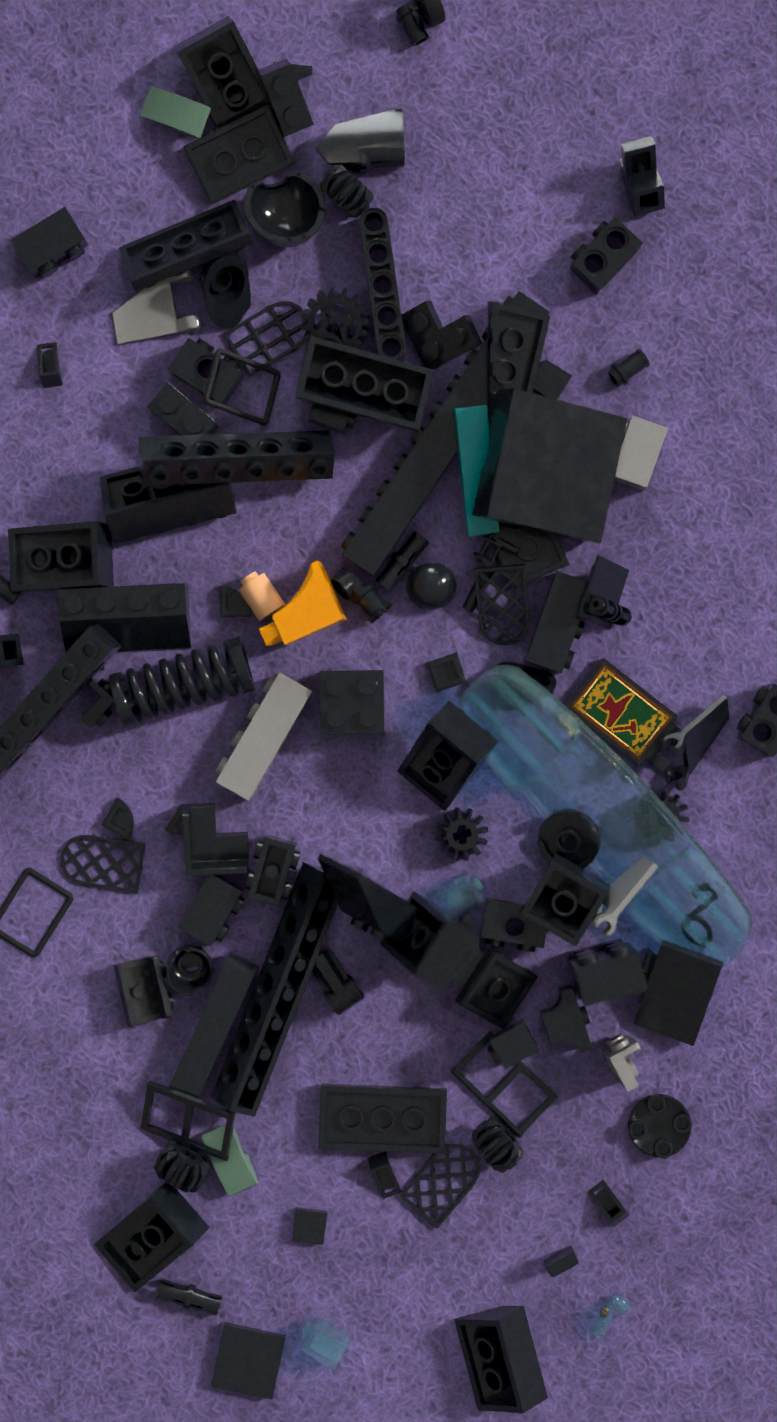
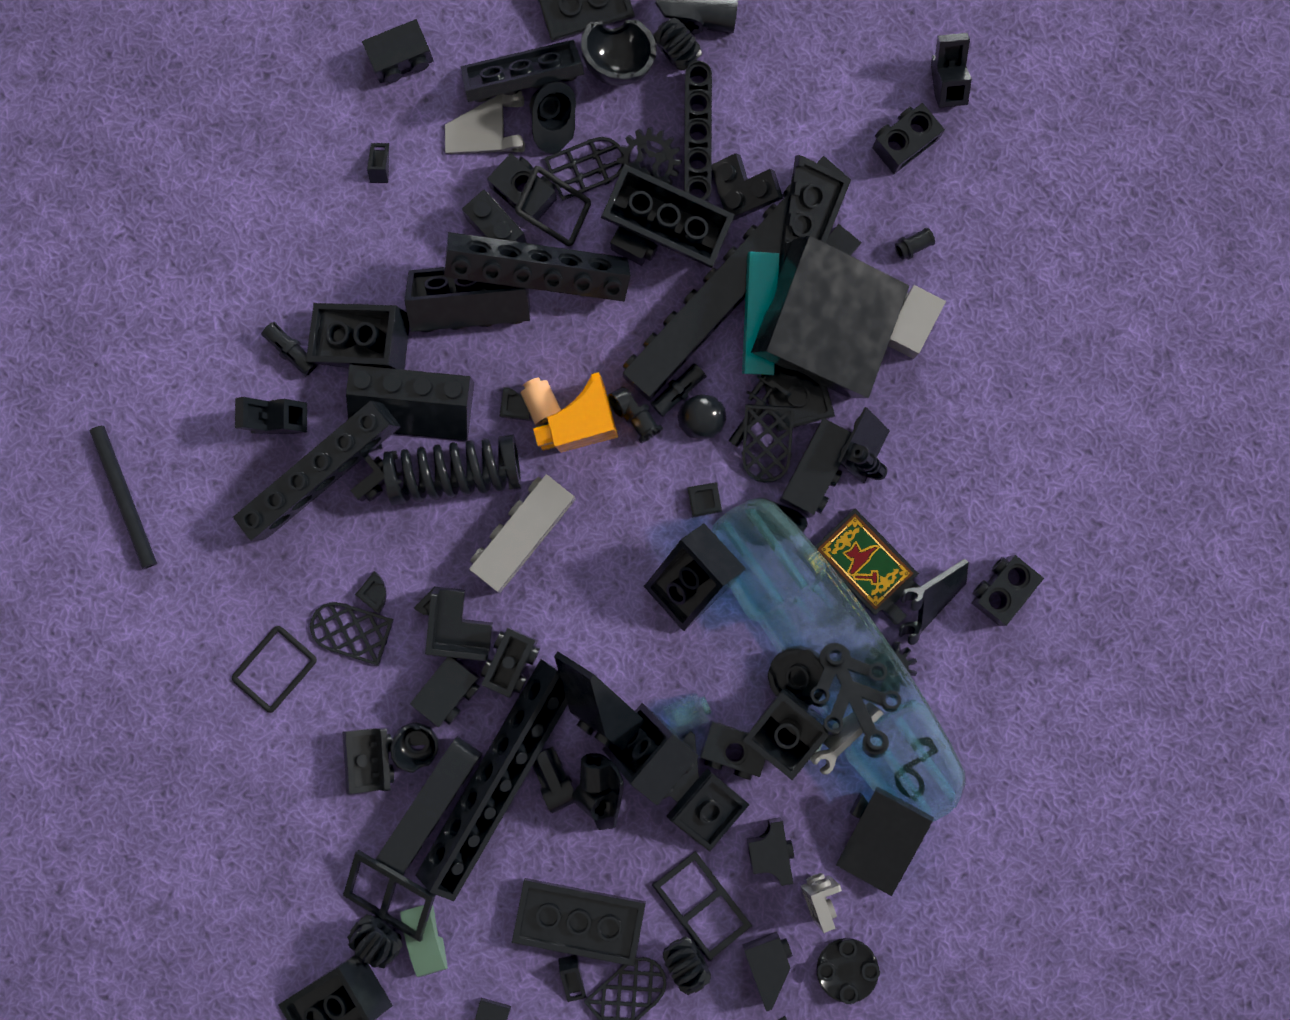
camera: 10 degrees right, 5 degrees down
(352, 702) = (610, 513): black brick -> none
(383, 985) = (599, 790): none -> black panel
(453, 828) = (703, 662): black gear -> none
(512, 1044) = (716, 868): black brick -> none
(579, 1132) = (769, 965): none -> black slope
(607, 972) = (819, 810): black brick -> none
(624, 850) = (853, 693): none -> black plant

